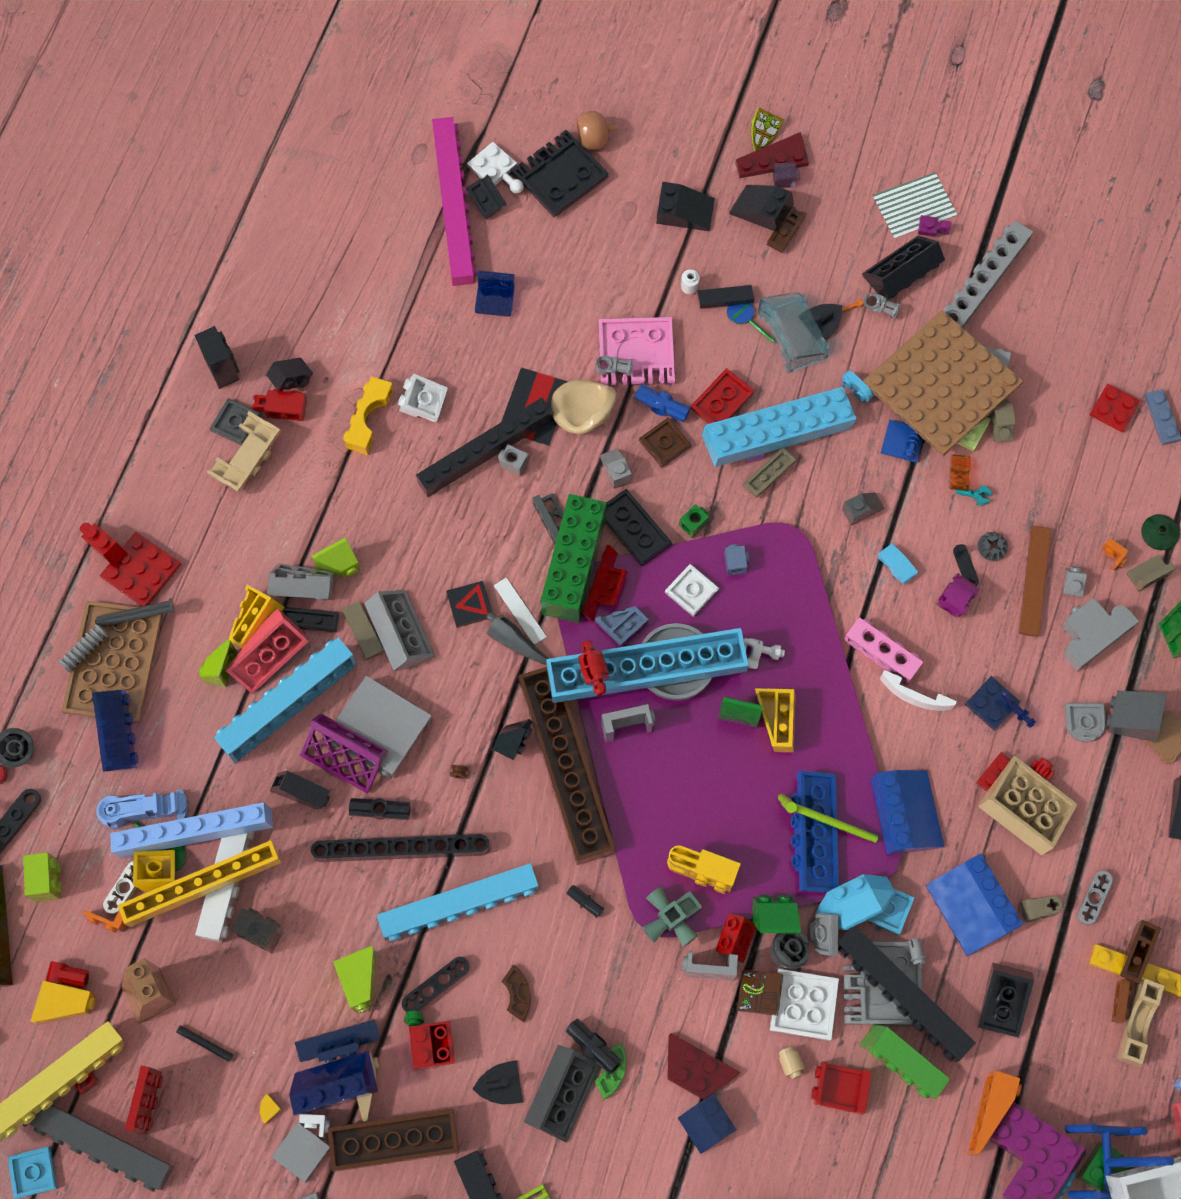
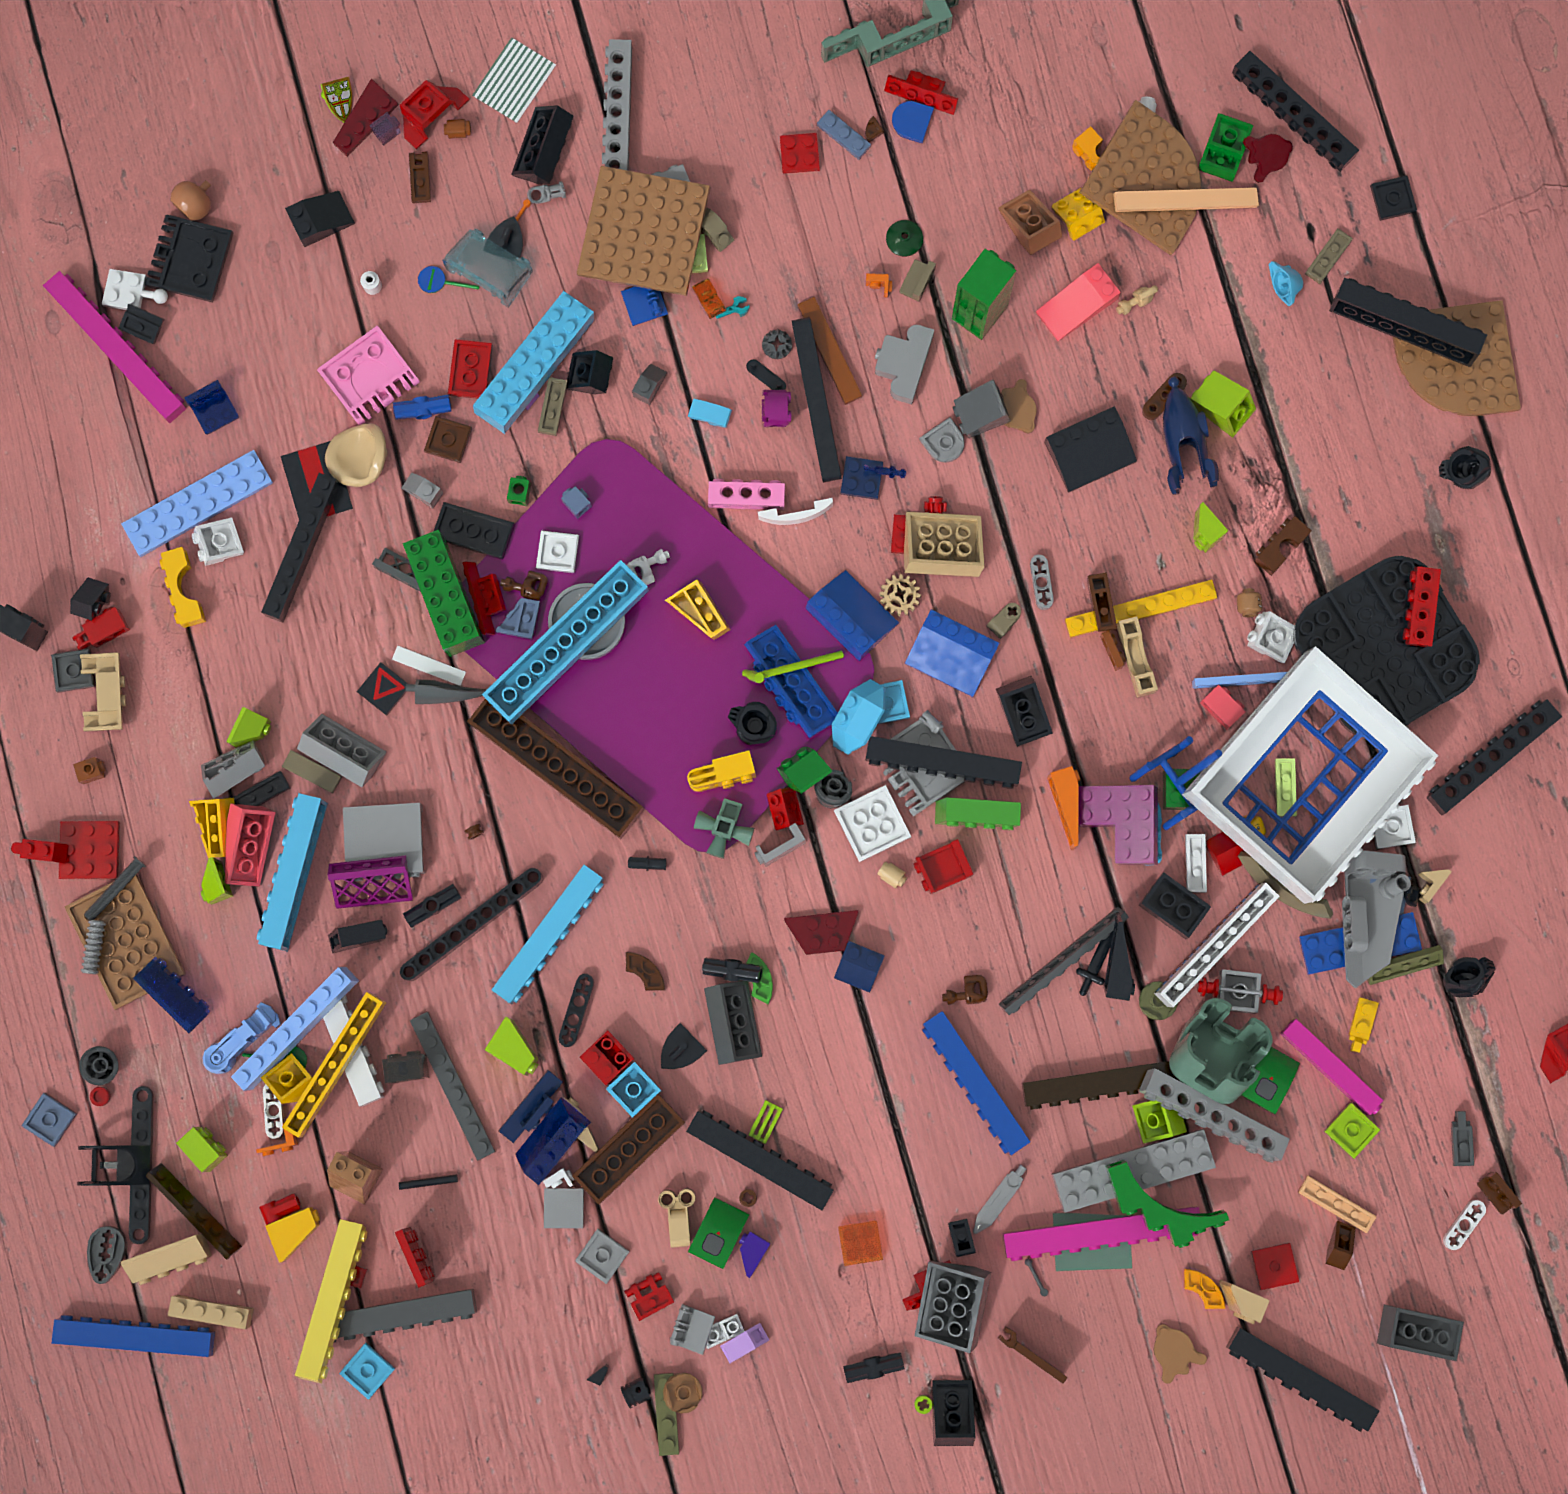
camera: 30 degrees left, 10 degrees up
(188, 507) = (89, 770): none -> dark orange brick
(268, 1109) = (514, 1194): yellow tile -> none
(285, 976) = (452, 1086): none -> dark grey plate
(413, 1018) = (578, 1047): green plate -> none
(428, 359) = (197, 503): none -> light blue plate
(435, 1089) = (633, 1089): none -> medium azure brick
(512, 737) = (497, 775): black slope -> none
(517, 466) = (338, 547): light grey brick -> none
(593, 667) = (525, 675): red piece -> none
(615, 365) = (360, 402): light grey connector -> none
(626, 718) = (578, 697): light grey panel -> none
(646, 601) = (527, 588): none -> reddish brown piece
(725, 296) = (410, 274): black tile -> none
(740, 712) = (666, 627): green slope -> none
(759, 843) = (753, 723): none -> black helmet
(760, 992) = (832, 838): reddish brown tile -> none
(763, 205) = (386, 170): black slope -> none
(819, 465) = (589, 372): none -> black slope
(825, 934) = (851, 758): light grey tile -> none
(829, 177) = (425, 106): none -> red piece
(843, 211) = (457, 128): none -> dark orange brick
(853, 382) = (569, 279): medium azure plate -> none
(930, 226) = (540, 92): magenta plate -> none
(952, 821) = (908, 592): none -> tan gear
(996, 613) = (816, 399): none -> black beam
(1074, 581) = (861, 329): light grey bracket -> none

